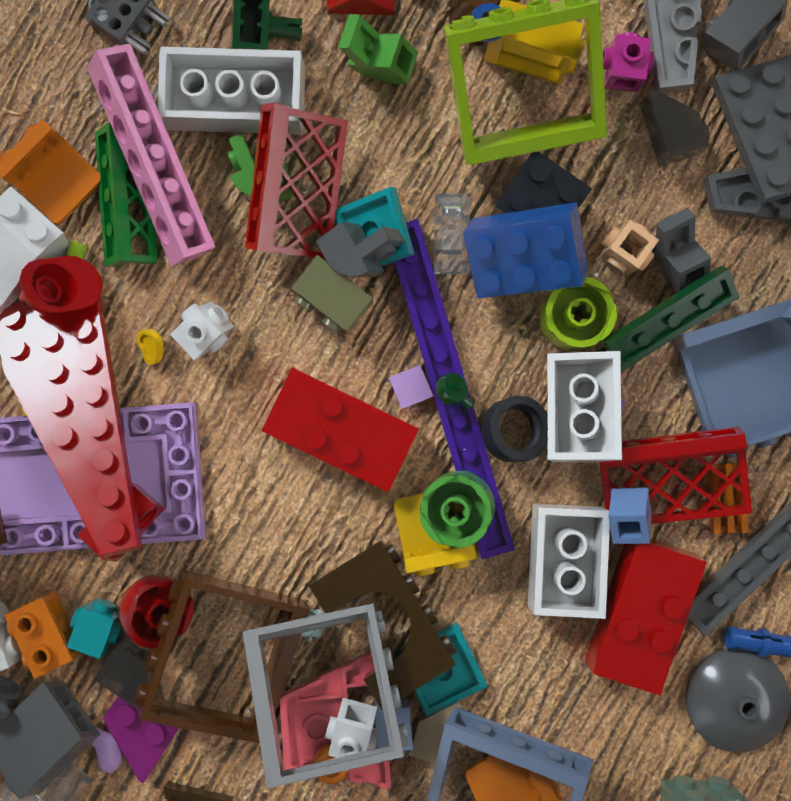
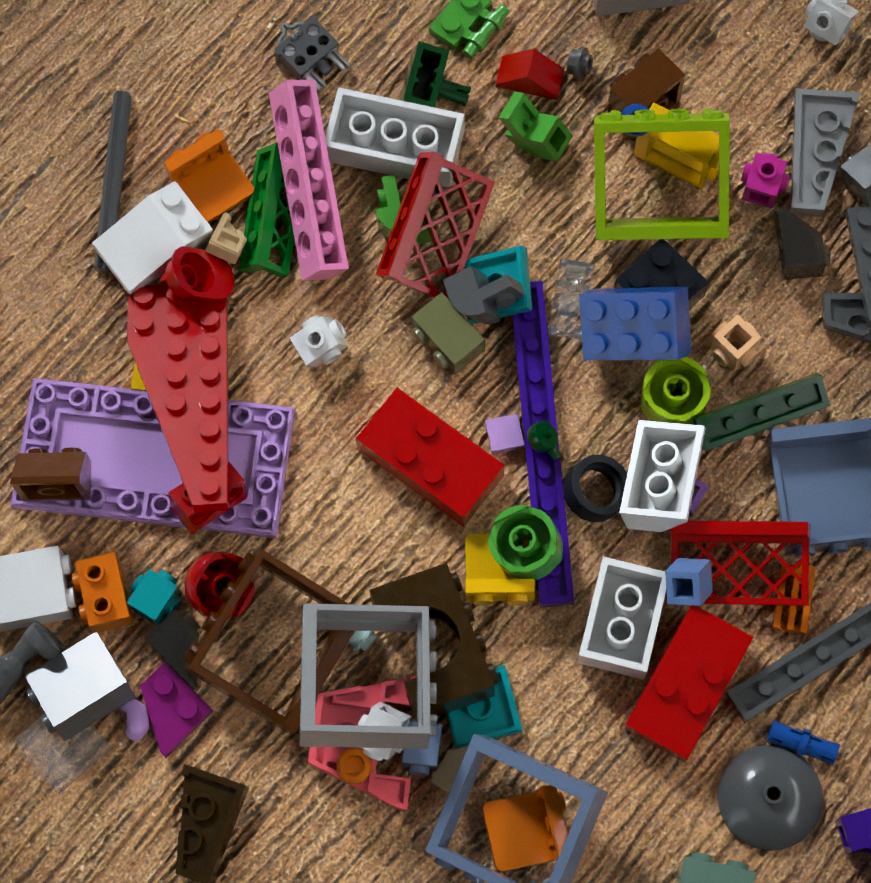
camera: 10 degrees right, 15 degrees down
(82, 240) = (226, 241): none -> tan tile
(151, 345) = (266, 348): yellow piece -> none
(678, 252) = (781, 351): dark grey brick -> none

